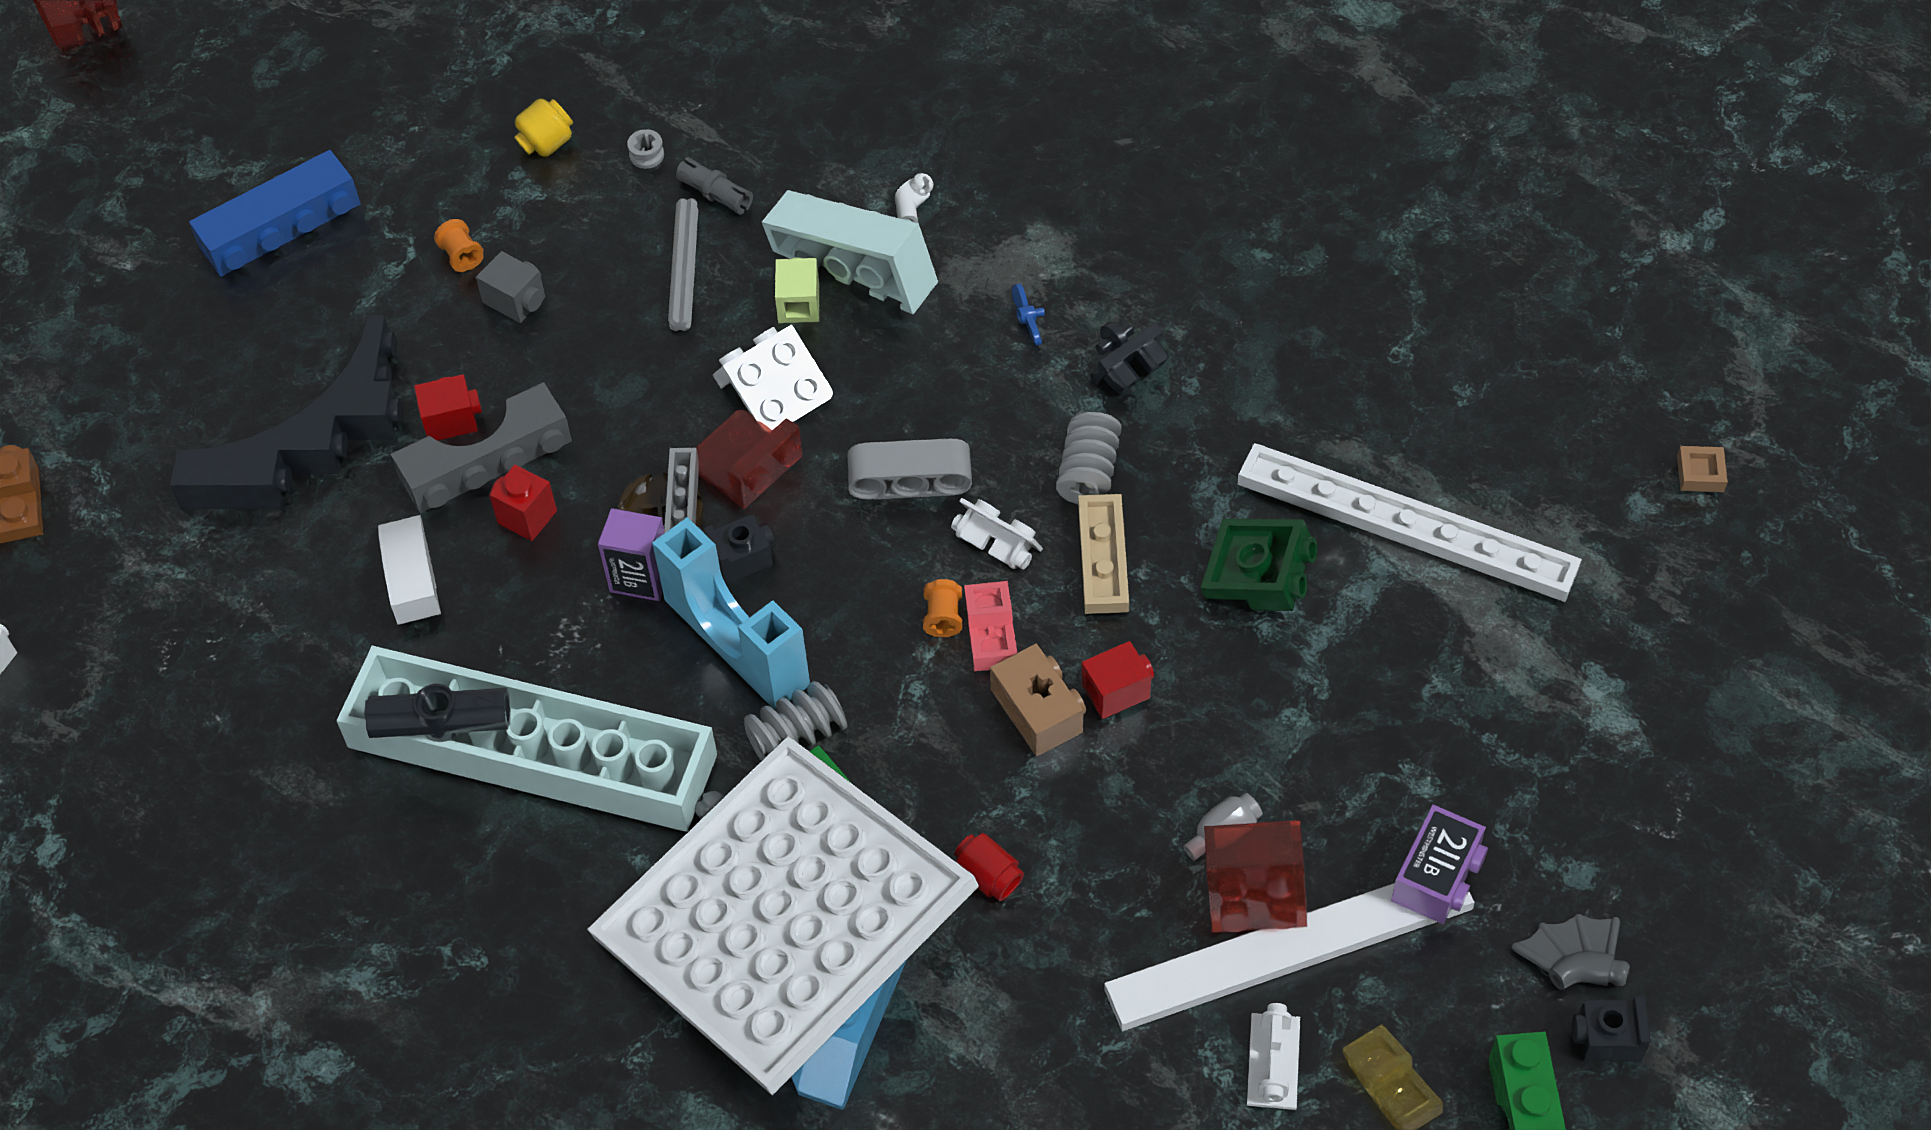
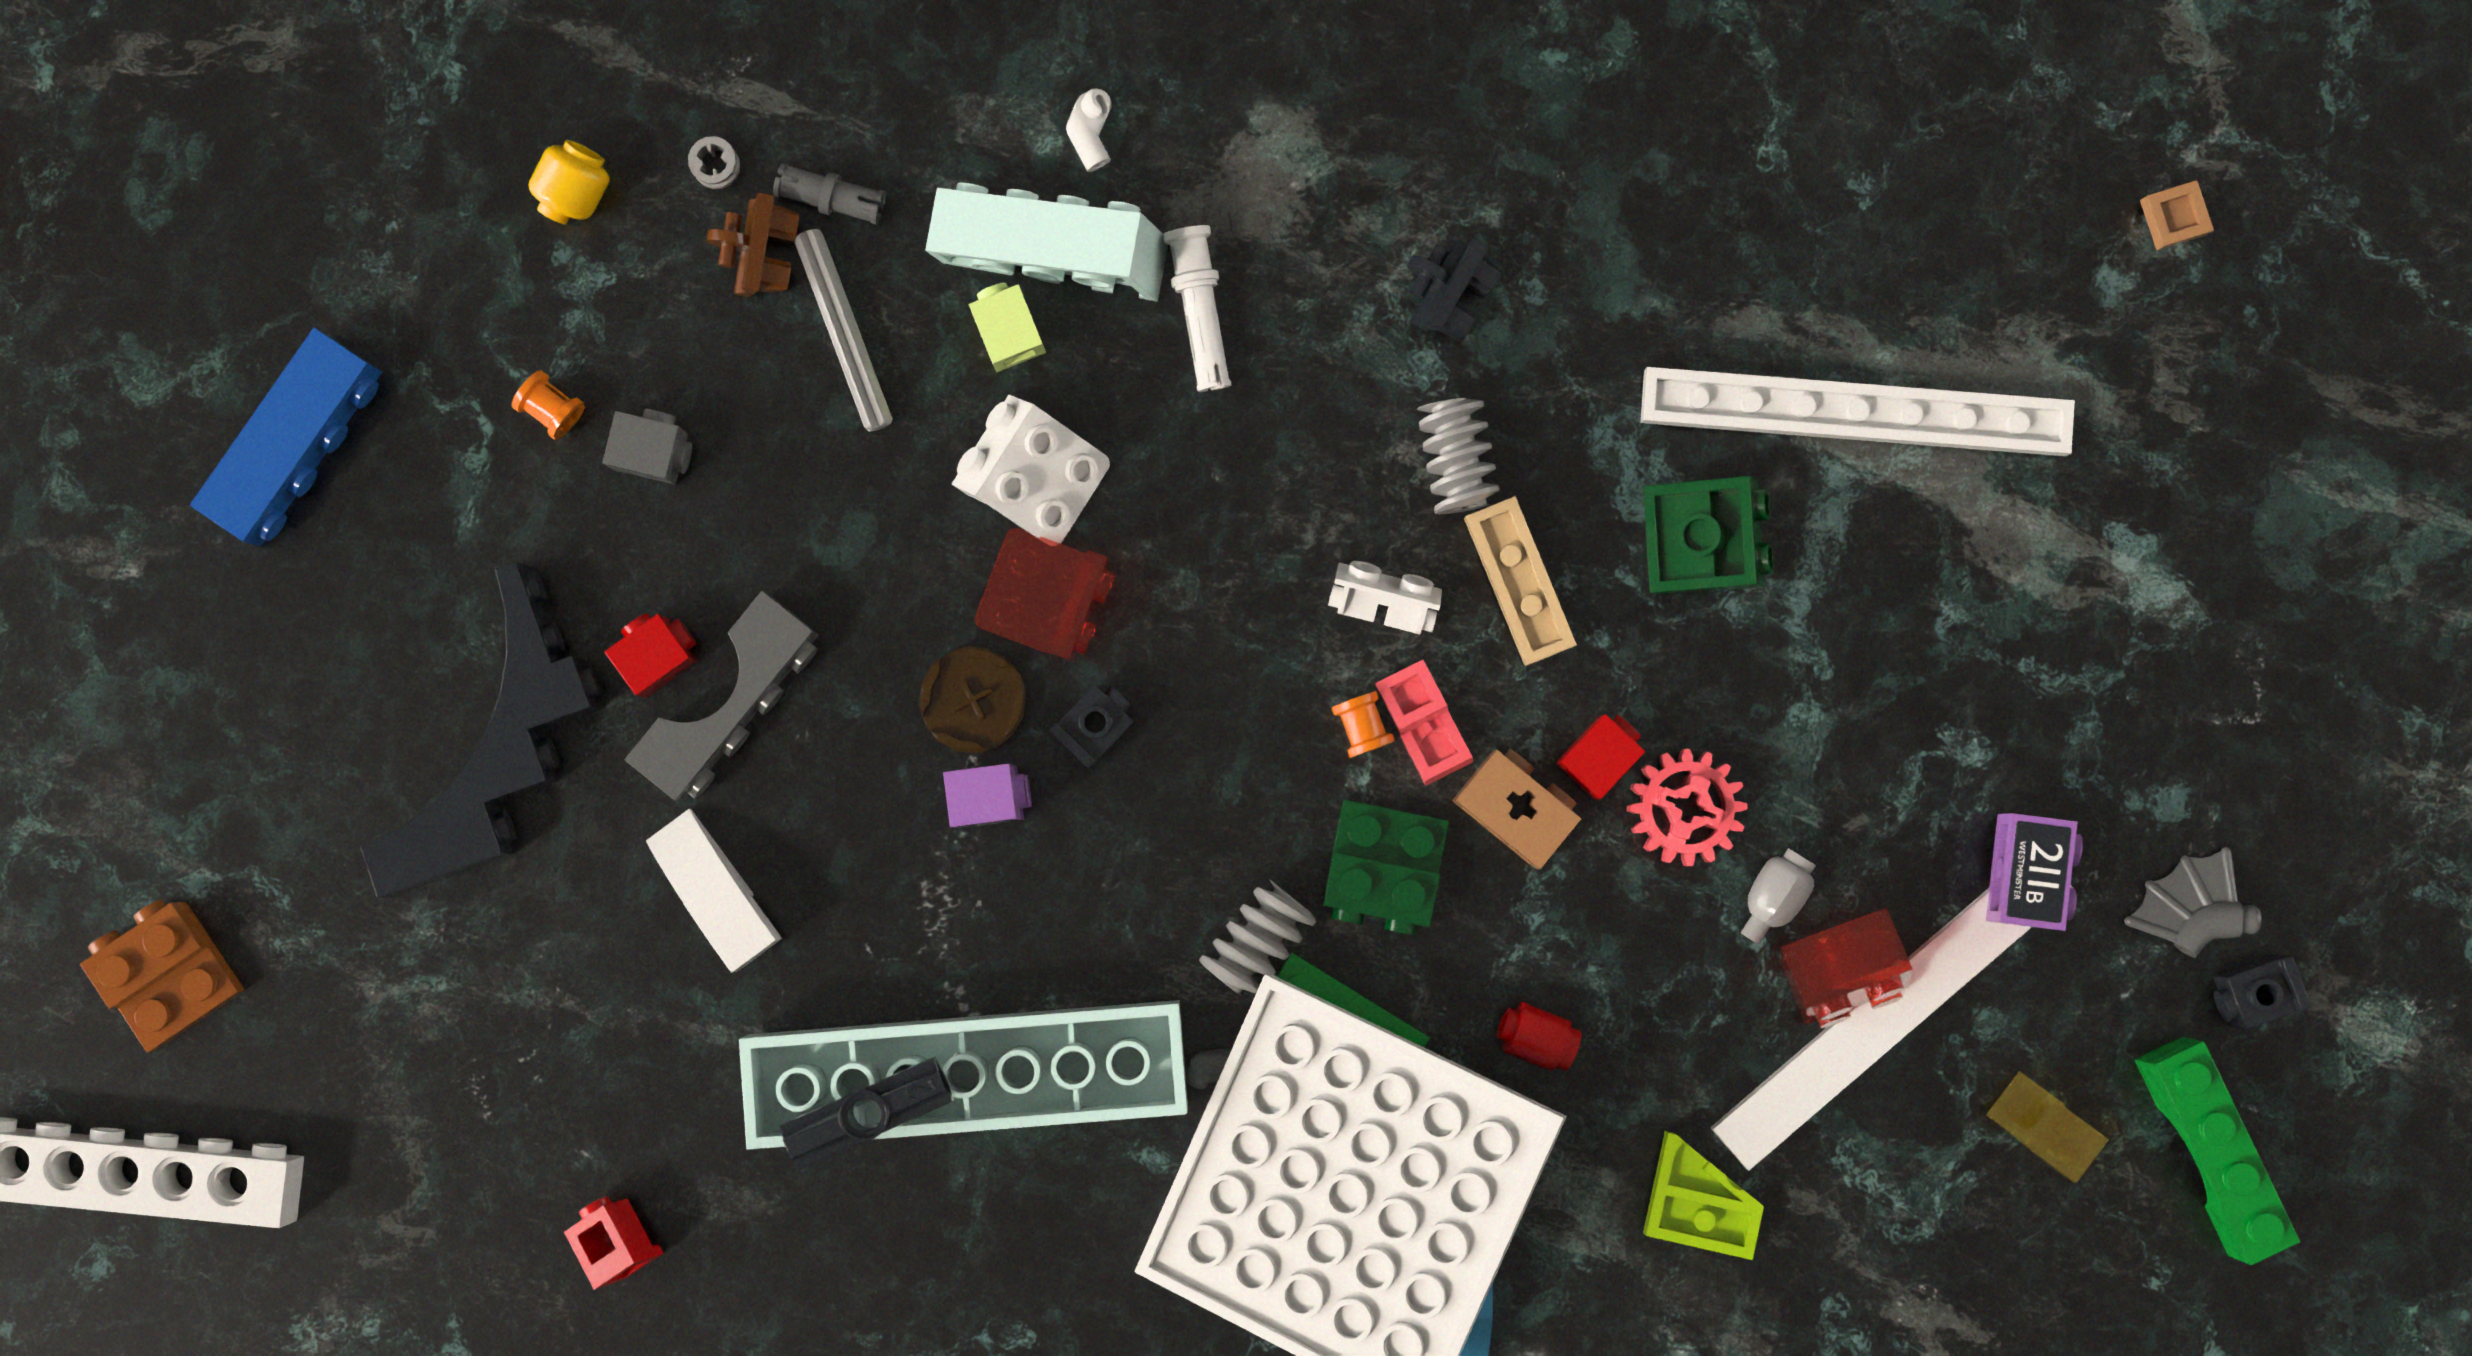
camera: 25 degrees left, 30 degrees up
(202, 773) = (610, 1242): none -> red brick
(522, 502) = (808, 759): red brick -> none
(643, 194) = (762, 223): none -> reddish brown hips
(681, 486) = (1000, 691): light grey piece -> none
(762, 648) = (1136, 846): medium azure arch -> none
(909, 469) = (1249, 544): light grey beam -> none
(917, 712) = (1385, 866): none -> dark green plate
(943, 303) = (1195, 282): none -> white pin
(1027, 314) = (1300, 257): blue piece -> none
(1071, 1038) = (1700, 1204): none -> lime wing
(1173, 740) = (1696, 784): none -> coral gear
(1273, 1058) = (1918, 1151): white hinge -> none

